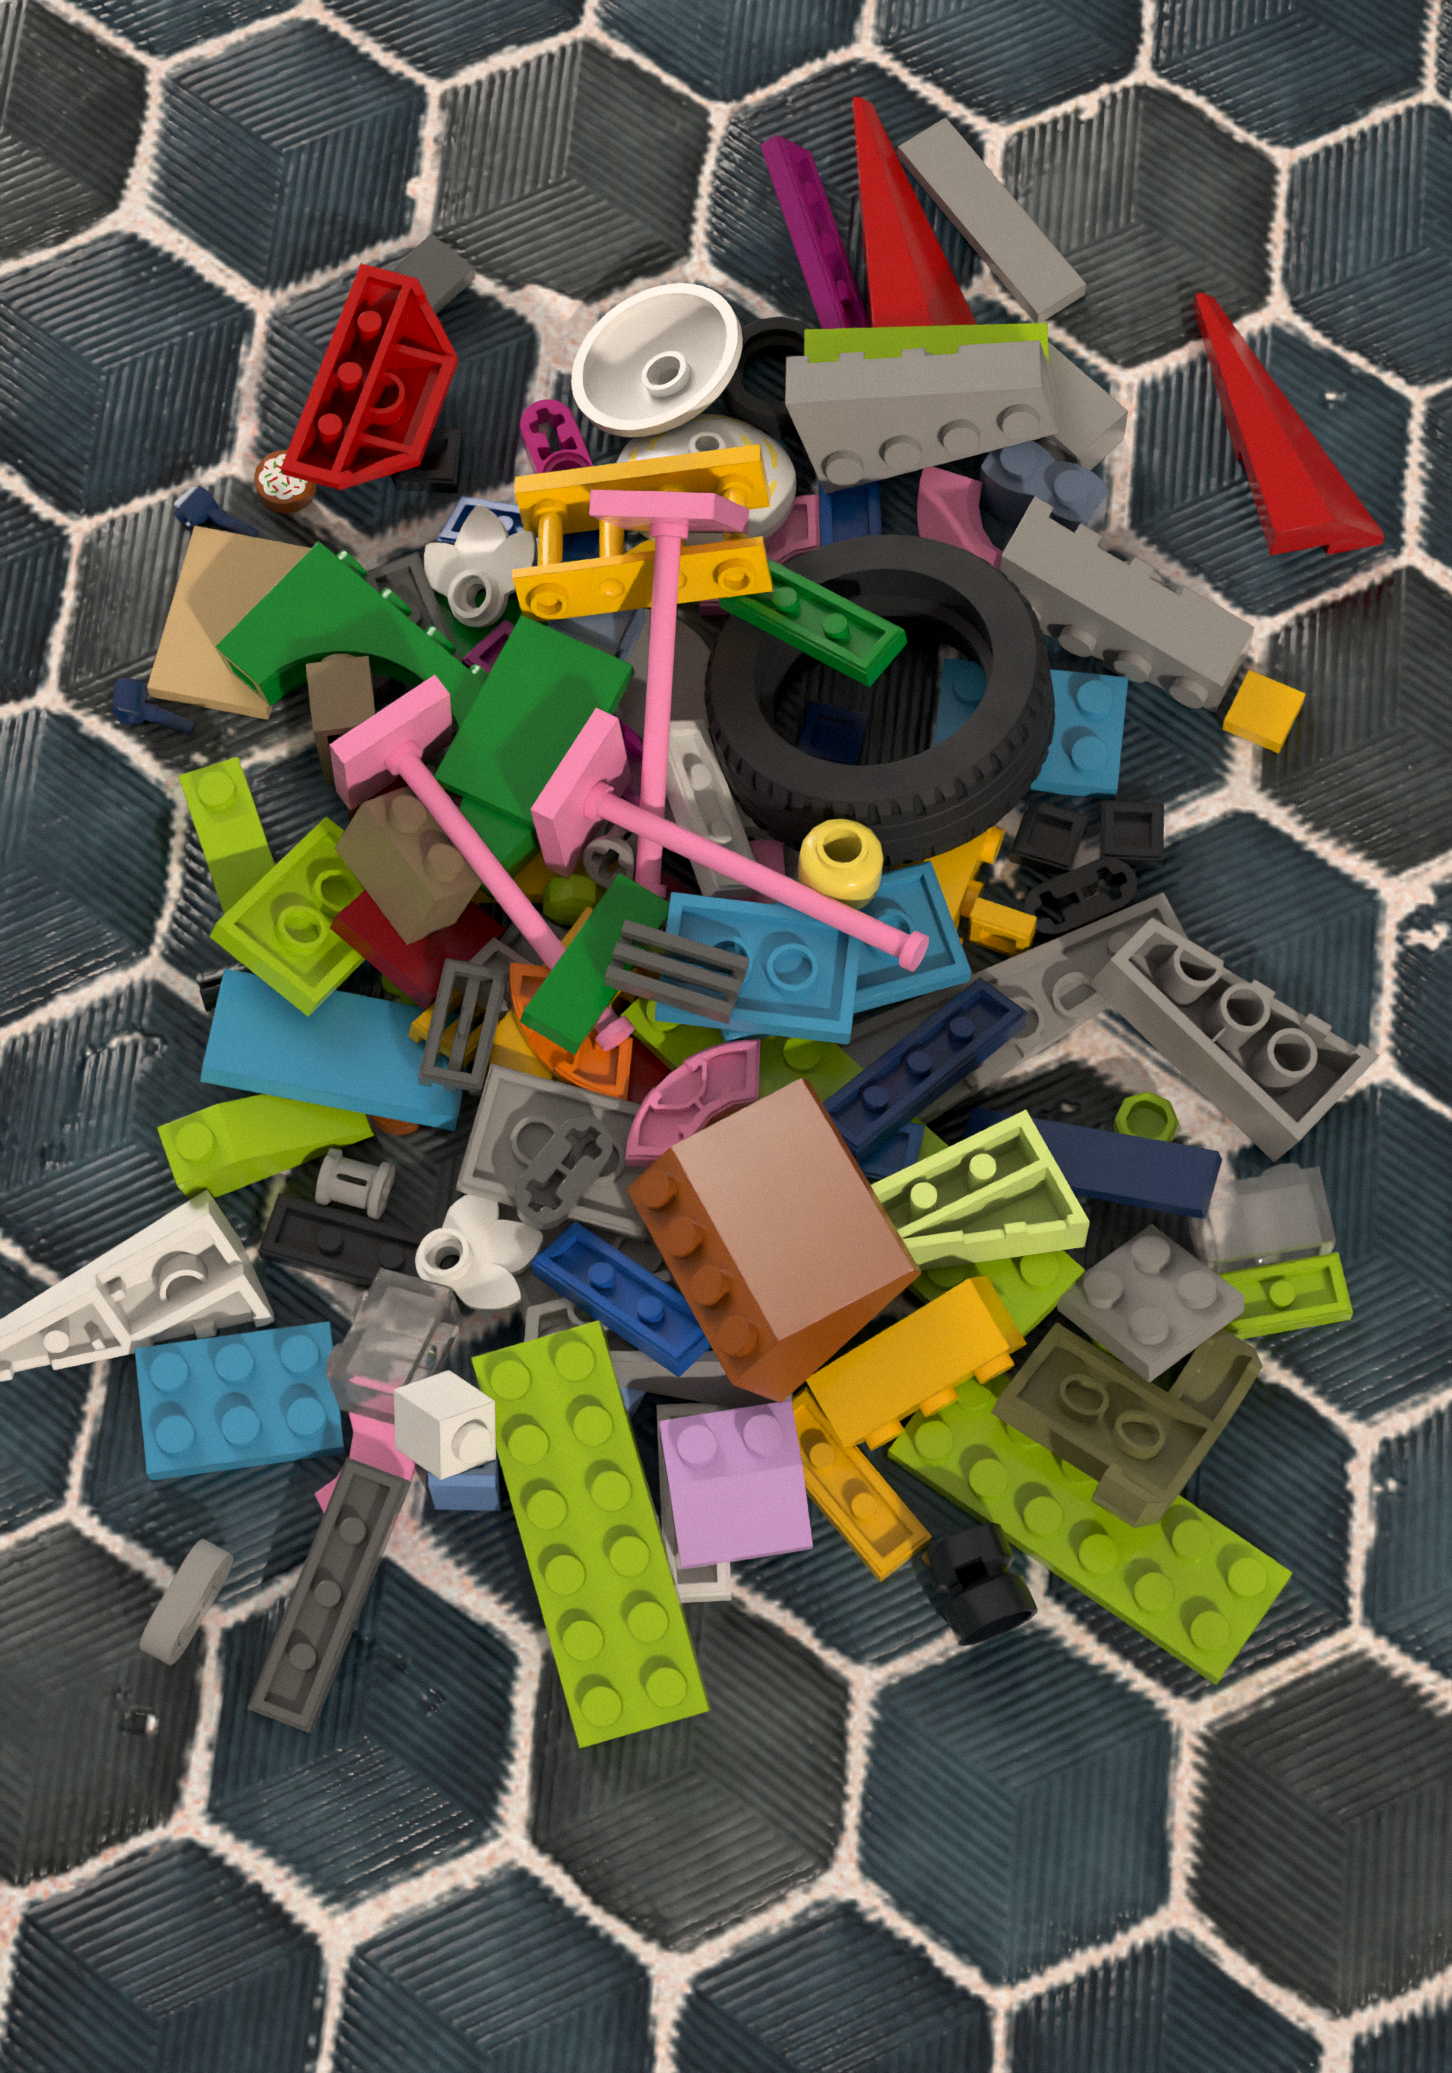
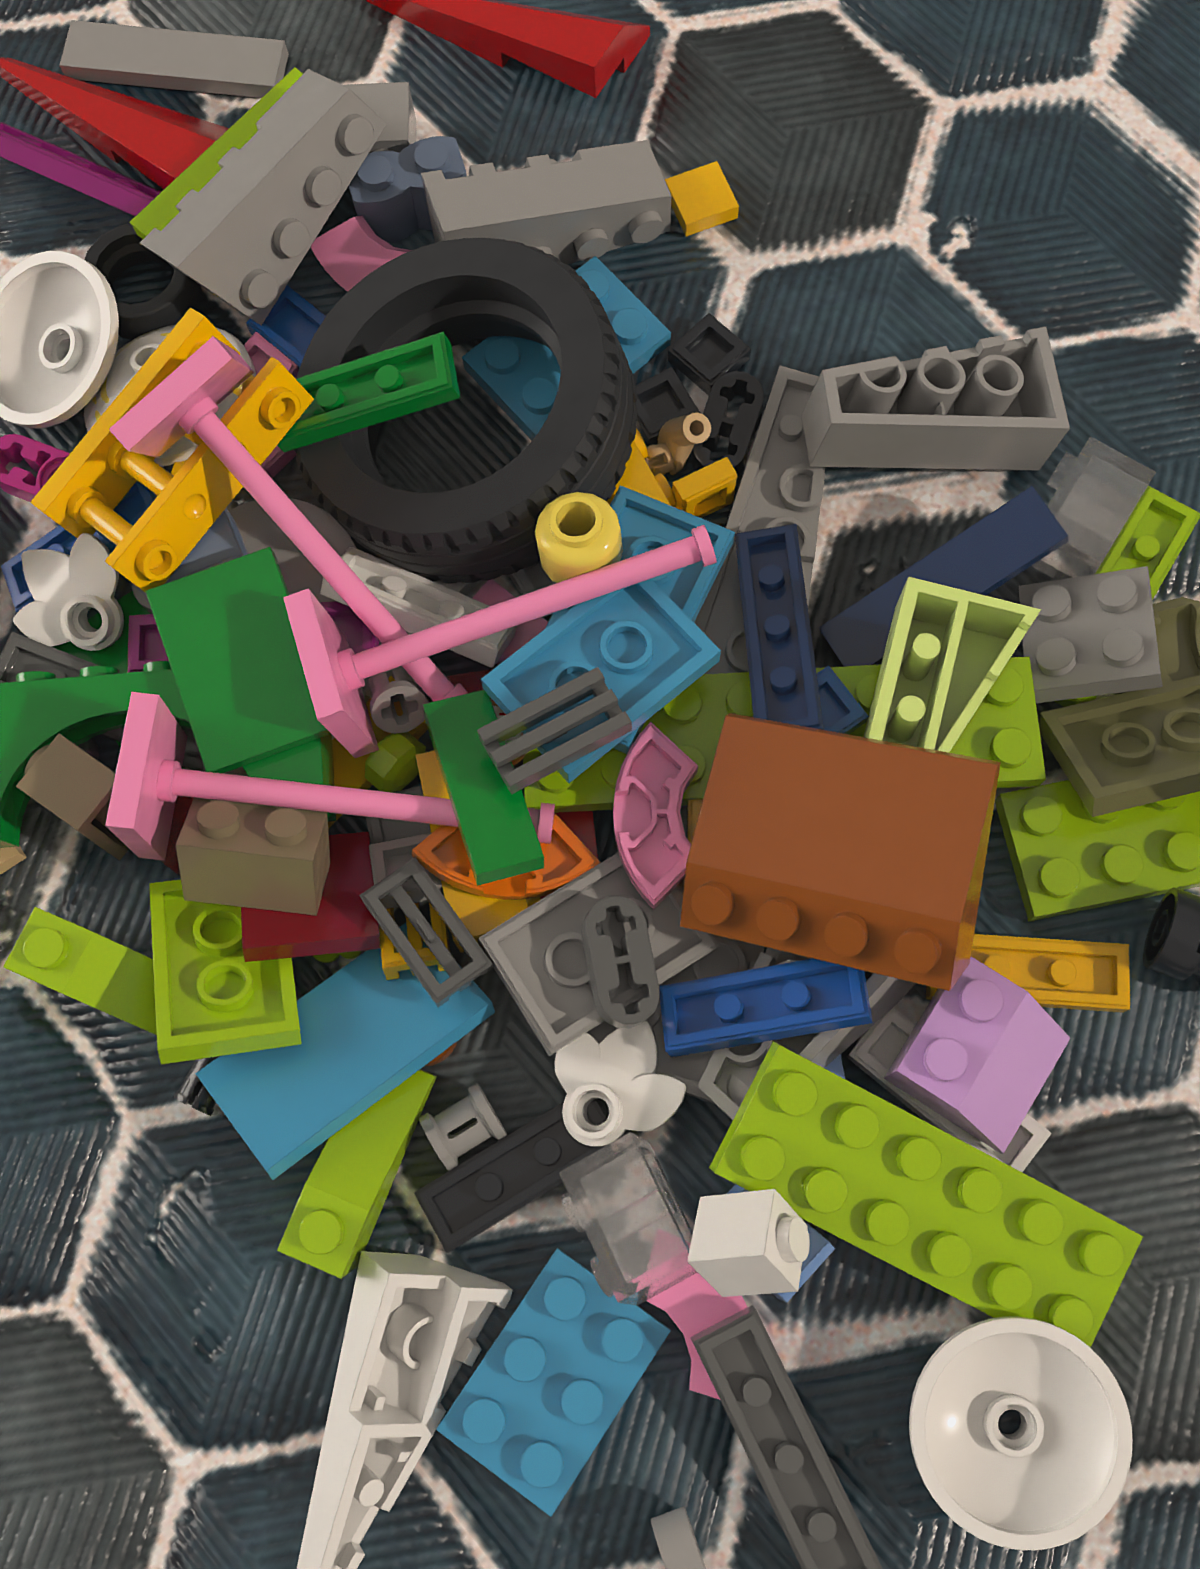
camera: 45 degrees left, 5 degrees up
(458, 1690) = (1061, 1463): none -> white dish
(833, 733) = (441, 471): dark blue tile -> none
(917, 1364) = (1024, 833): yellow brick -> none
(1017, 879) = (676, 443): none -> tan arm
(1147, 1117) = (936, 523): lime tile -> none

